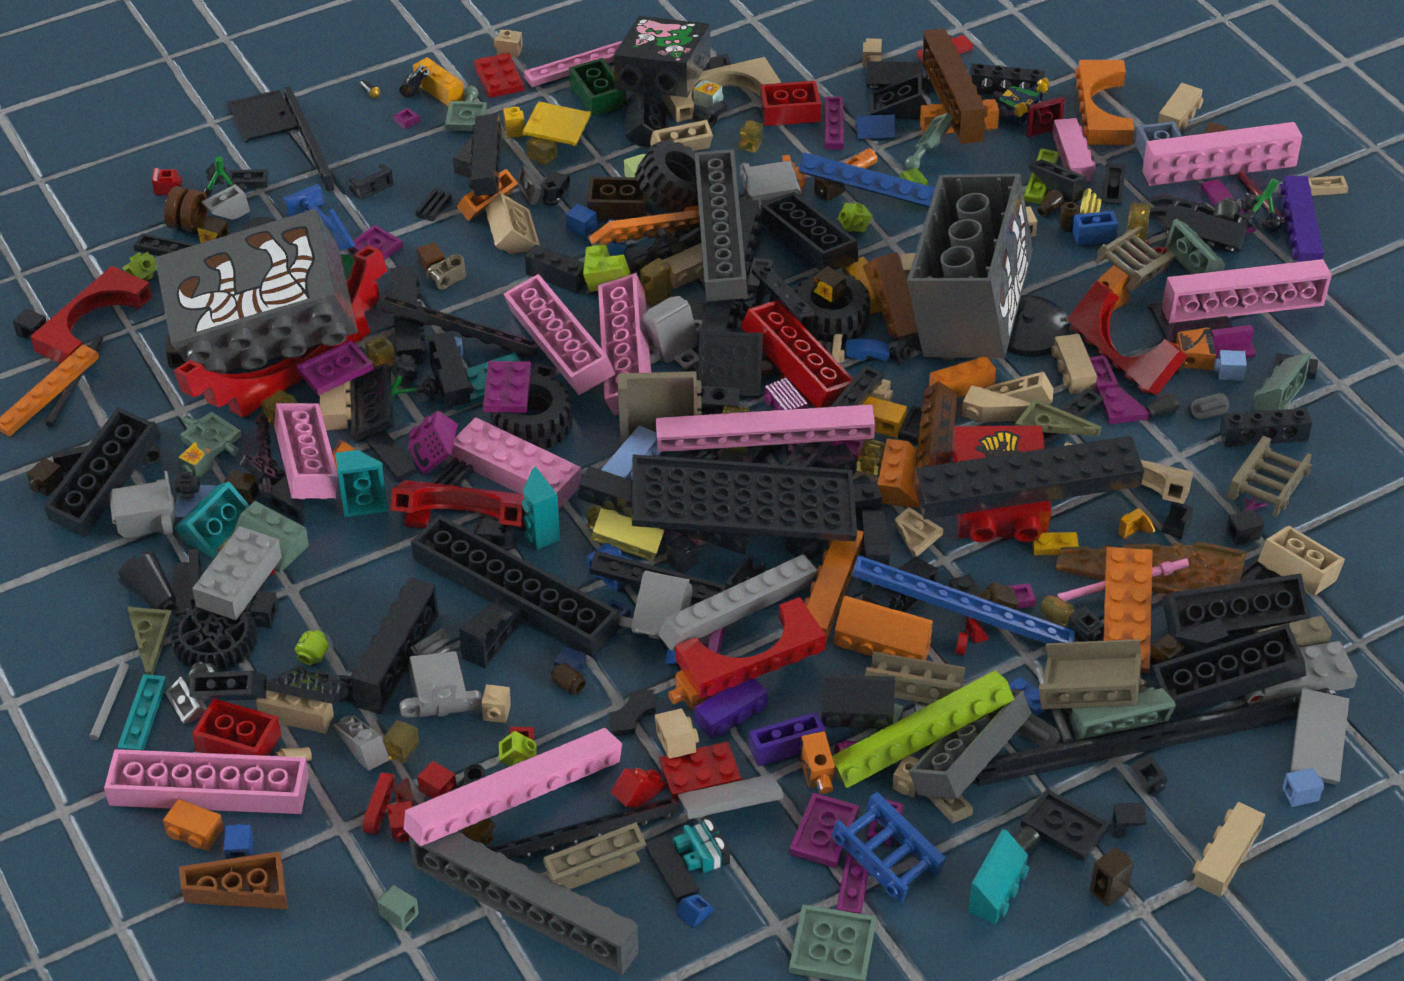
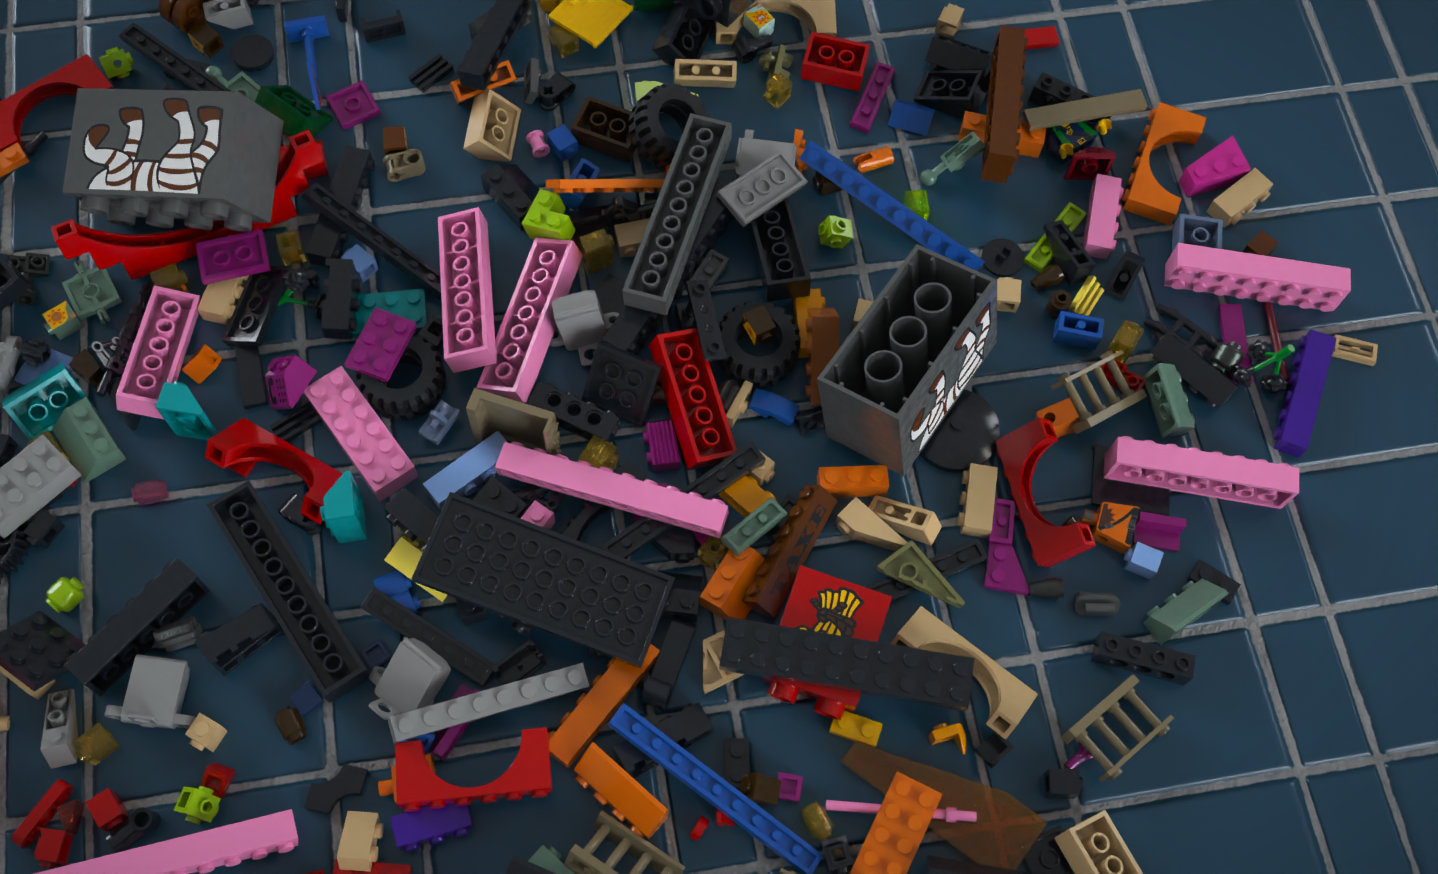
camera: 15 degrees right, 20 degrees up
(347, 557) = (150, 492): none -> clear pink brick
(558, 226) = (538, 144): none -> bright pink bush
(582, 438) = (439, 422): none -> sand blue hips
(737, 118) = (774, 61): none -> olive hips
(779, 195) = (761, 188): none -> light grey tile
(898, 424) = (753, 526): none -> sand green tile
(1023, 76) = (1084, 109): none -> dark tan tile
(1149, 94) = (1215, 170): none -> dark pink wedge

